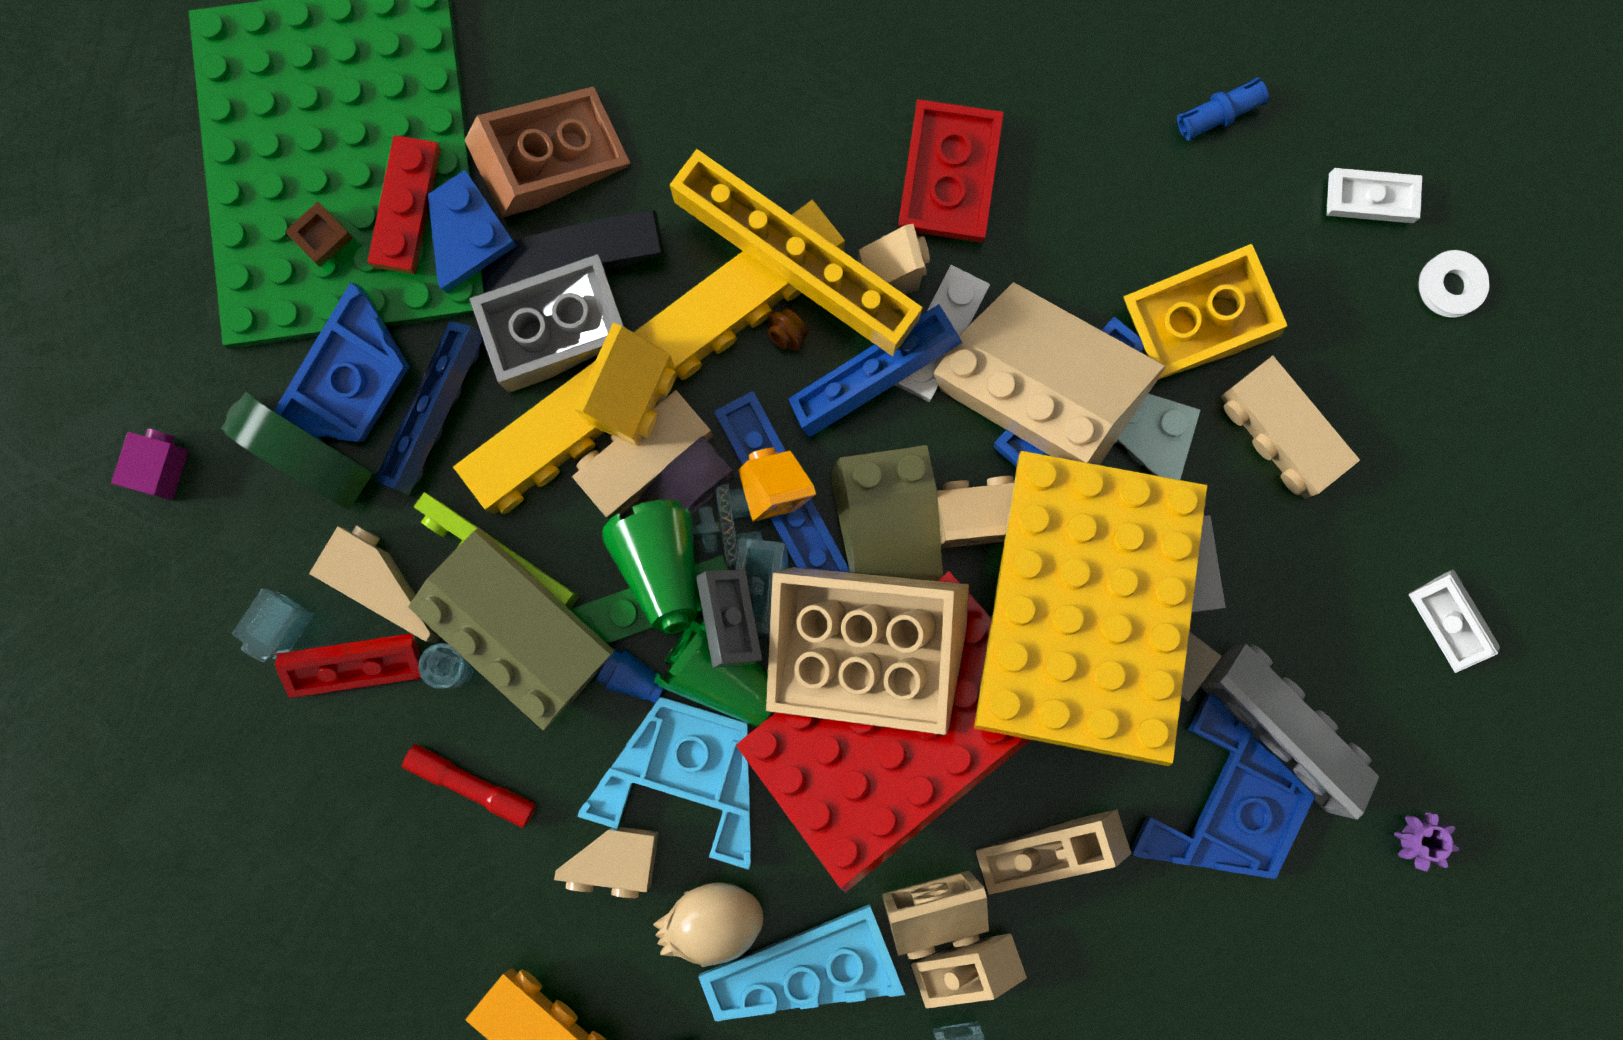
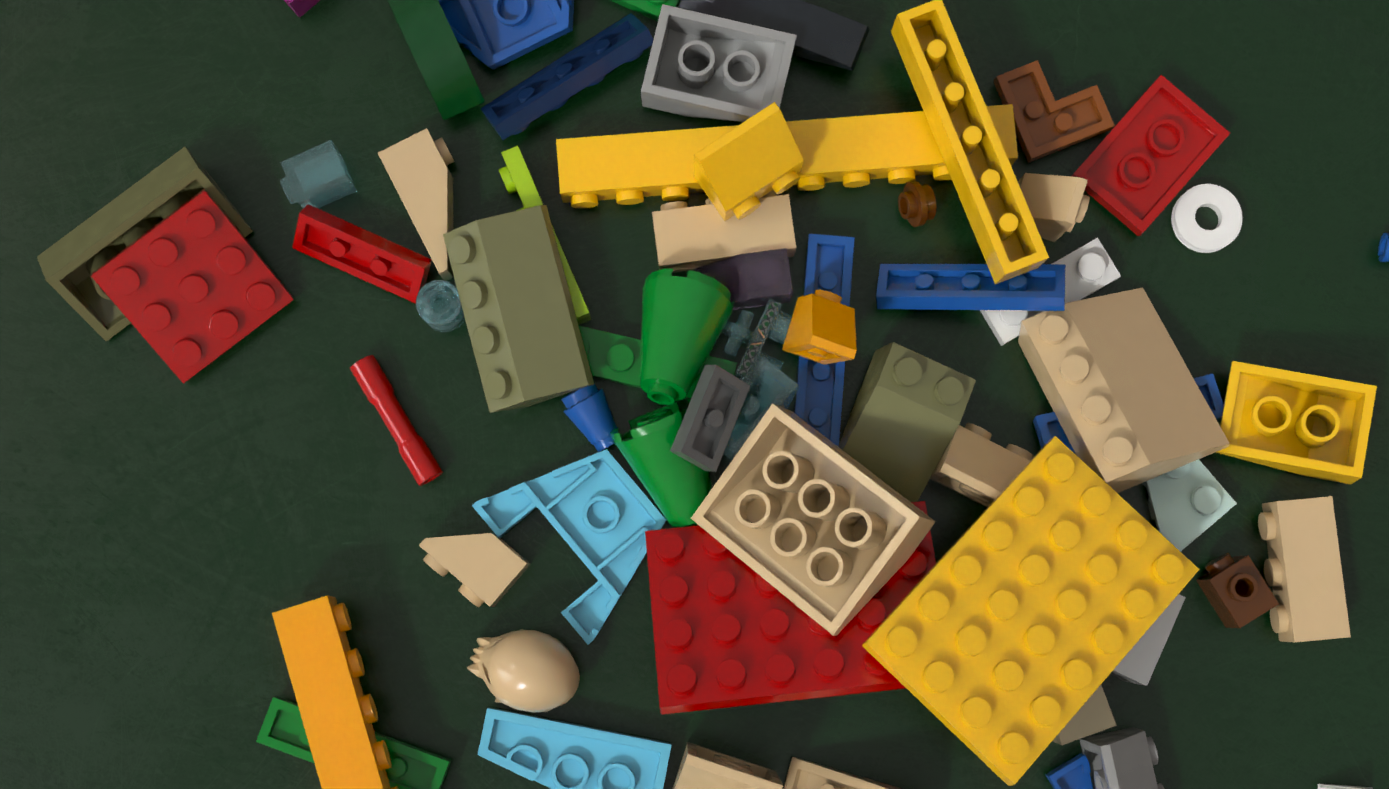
camera: 30 degrees right, 0 degrees up
(158, 777) = (102, 236): none -> olive slope
(222, 785) = (192, 286): none -> red plate
(849, 198) = (1047, 124): none -> dark orange plate
(1028, 172) = (1224, 205): none -> white piece
(1245, 480) = (1236, 590): none -> reddish brown brick

